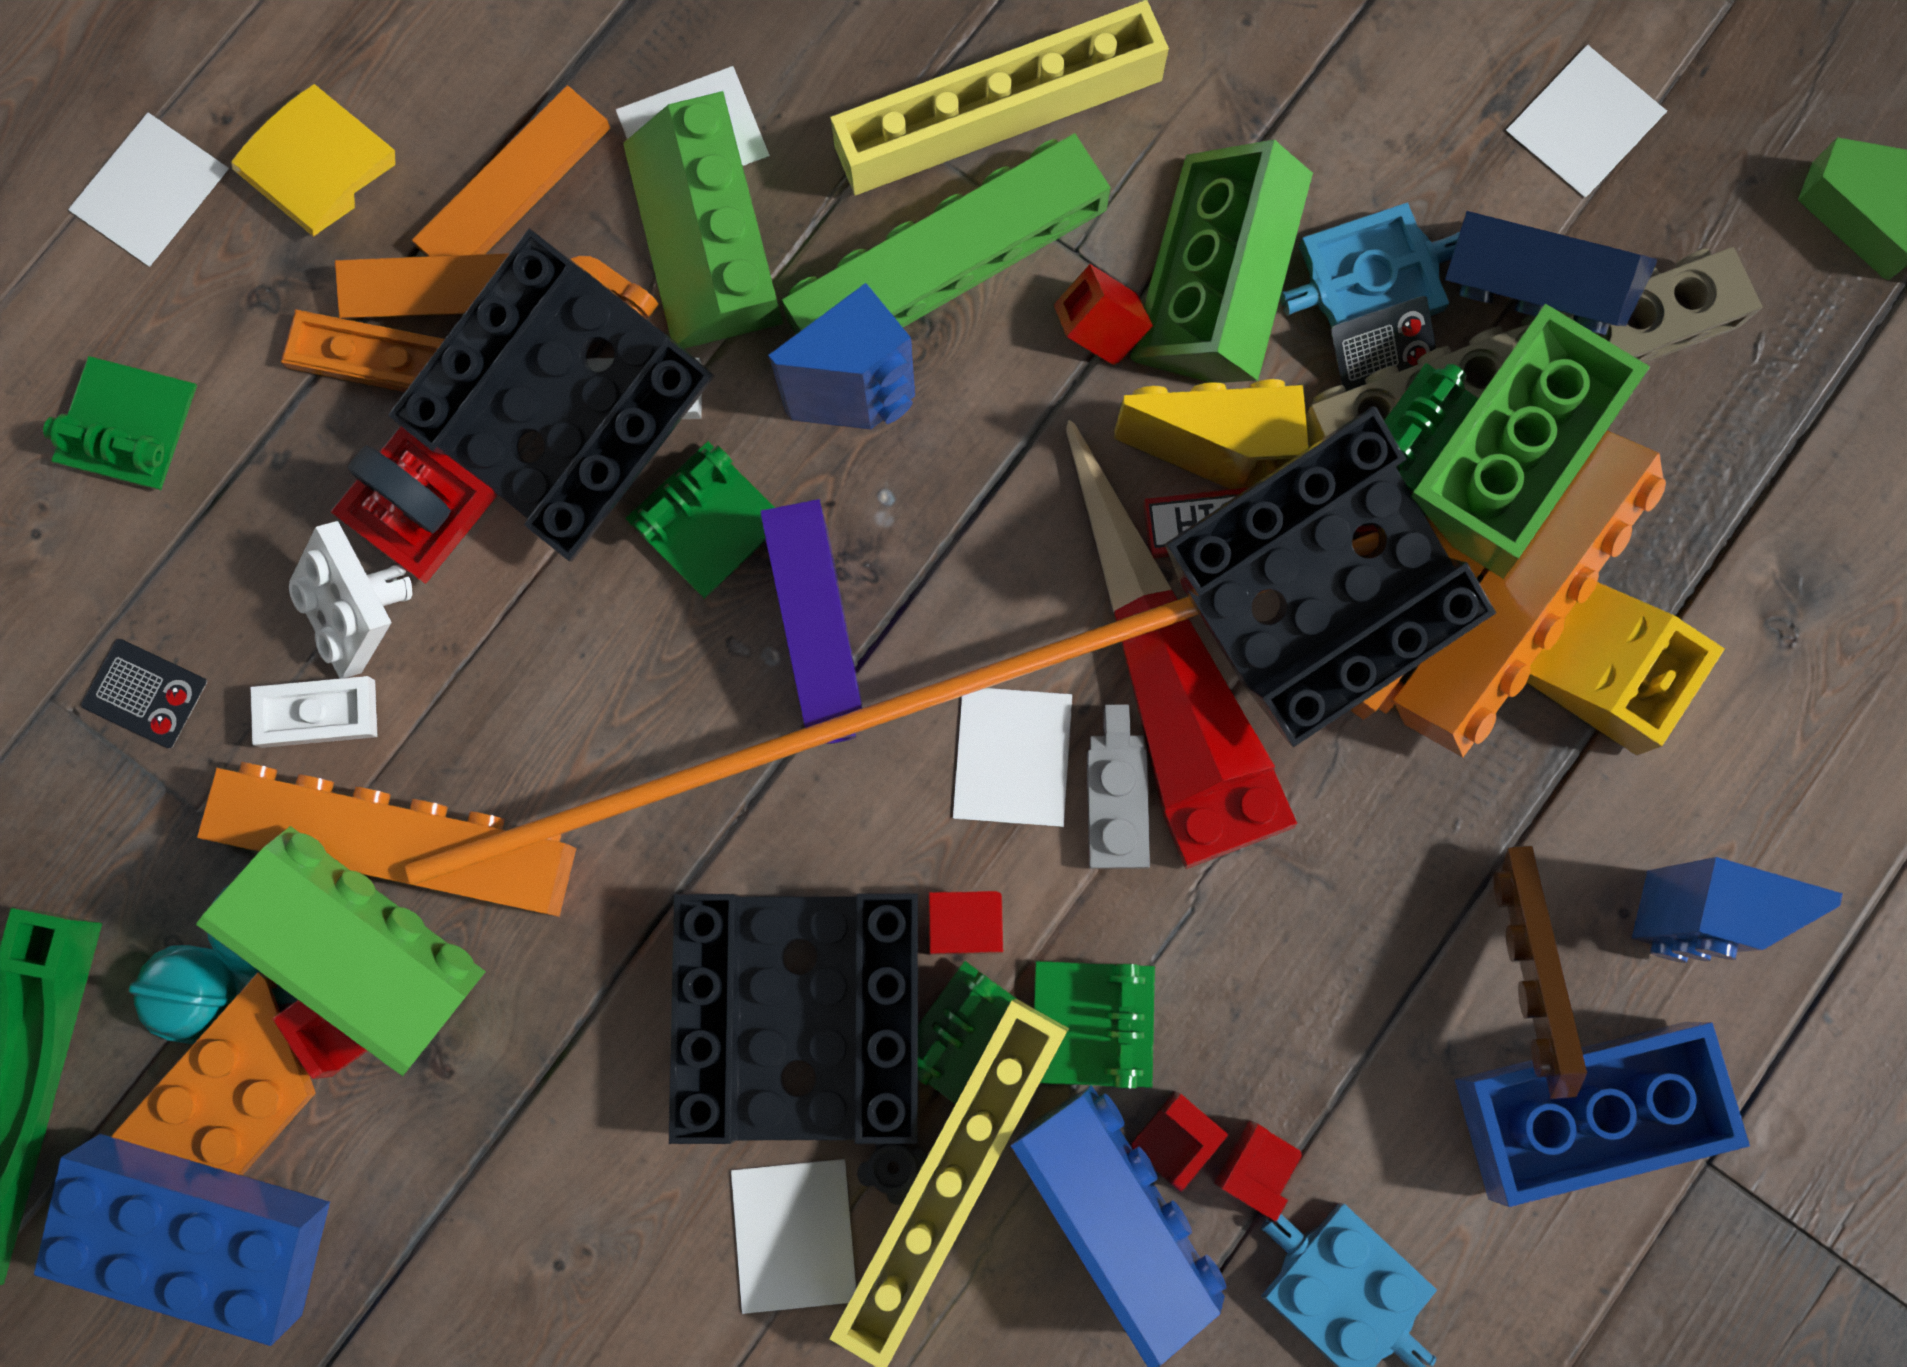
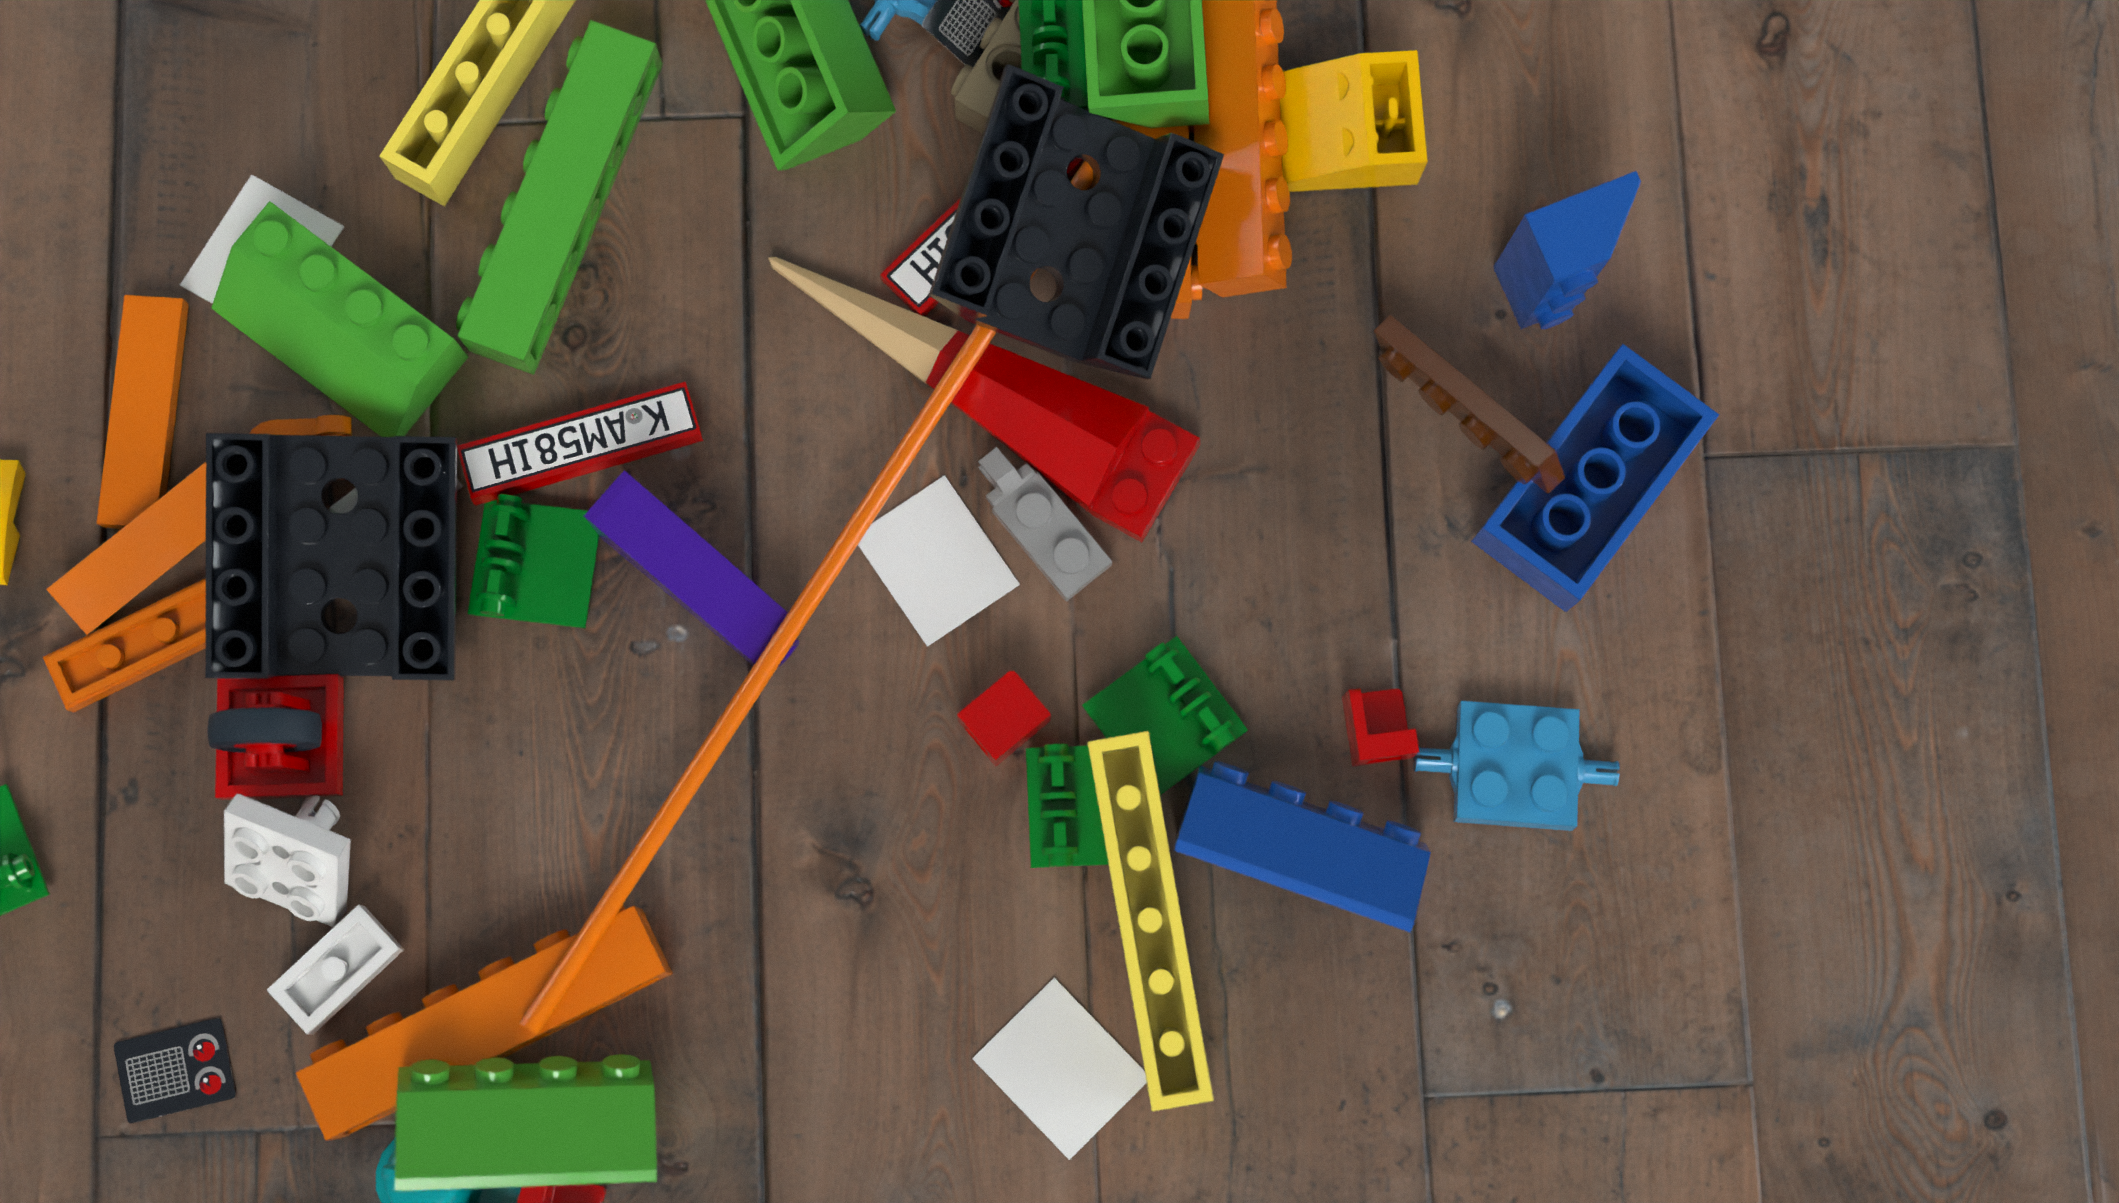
camera: 45 degrees left, 0 degrees up
(748, 1017) = (893, 926): black slope -> none
(811, 453) = (579, 443): none -> tile
(847, 366) = (560, 347): blue slope -> none
(893, 1184) = (1085, 965): black plate -> none
(1102, 315) = (728, 151): red panel -> none
(1179, 1140) = (1300, 751): red panel -> none
(1218, 431) = (896, 177): yellow slope -> none

